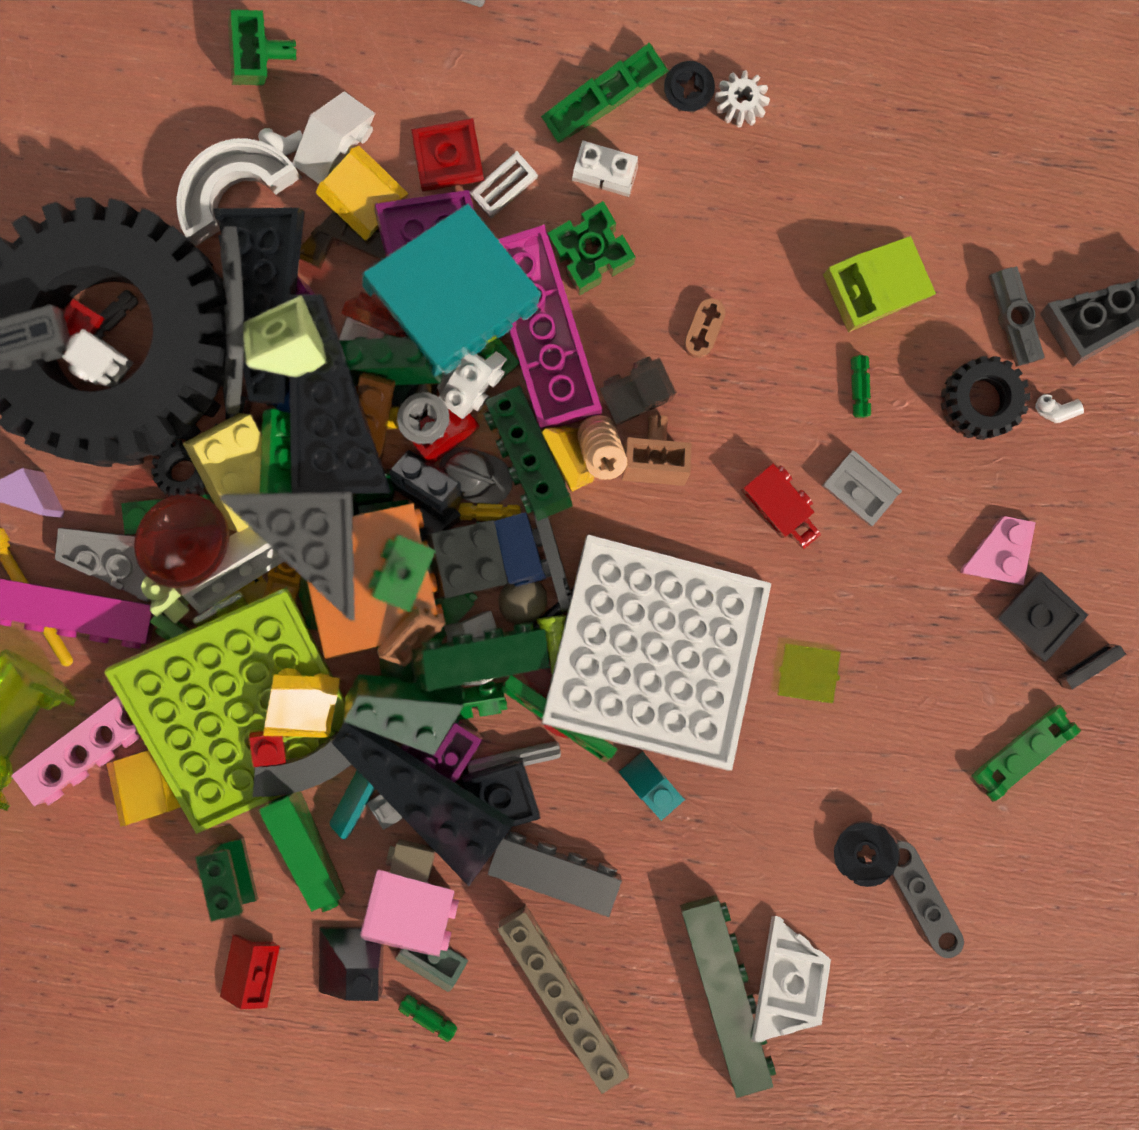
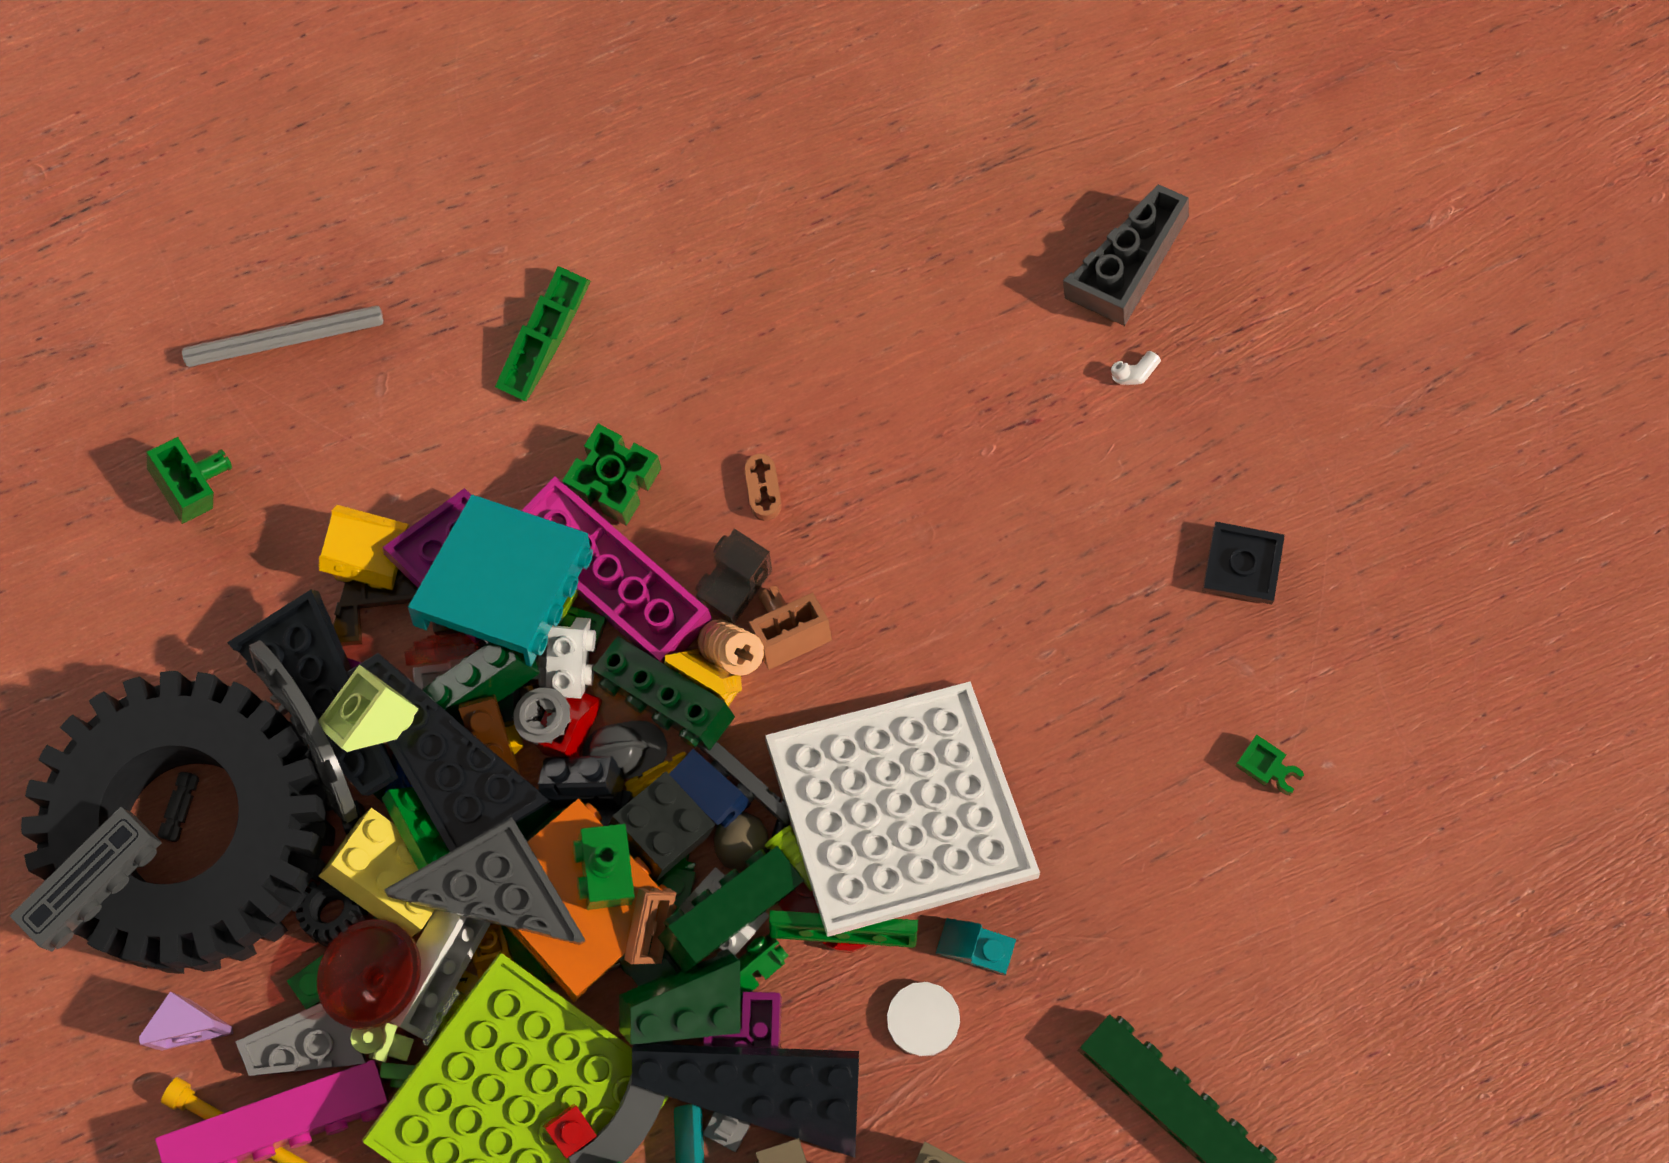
camera: 30 degrees left, 15 degrees down
(81, 318) = (156, 815): red plate -> none
(96, 360) = (191, 839): white brick -> none
(217, 171) = (218, 597): white brick -> none
(284, 144) = (258, 552): white arm -> none
(301, 704) = (579, 1063): slope -> none
(331, 135) = (305, 513): white brick -> none
(447, 154) = (426, 470): red tile -> none
(505, 789) = (836, 1028): black tile -> none
(510, 195) = (503, 483): white tile -> none
(530, 756) = (824, 1001): light grey axle -> none
(556, 874) = (933, 1090): dark grey brick -> none
(579, 816) = (923, 1019): none -> white tile
(606, 164) = (587, 390): white hips -> none
(681, 74) = (605, 277): black gear -> none
(736, 89) = (661, 263): white gear -> none
(782, 504) = (934, 603): red brick -> none
(791, 984) = (1233, 1057): white wing -> none
(809, 673) = (1060, 747): clear neon green piece -> none
(856, 868) = (1224, 903): black plate -> none
(861, 386) = (941, 455): green axle -> none
(861, 488) = (1000, 545): light grey plate -> none
(878, 283) = (898, 354): lime slope -> none
(927, 902) = (1309, 896): dark grey plate -> none
(956, 781) = (1263, 763): none -> green plate
(1004, 552) = (1170, 526): bright pink wing -> none
(1008, 387) = (1068, 372): black tyre -> none
(1011, 295) = (1060, 325): dark grey piece -> none
(1025, 752) = (1313, 698): green plate -> none
(1091, 666) = (1318, 580): black tile -> none

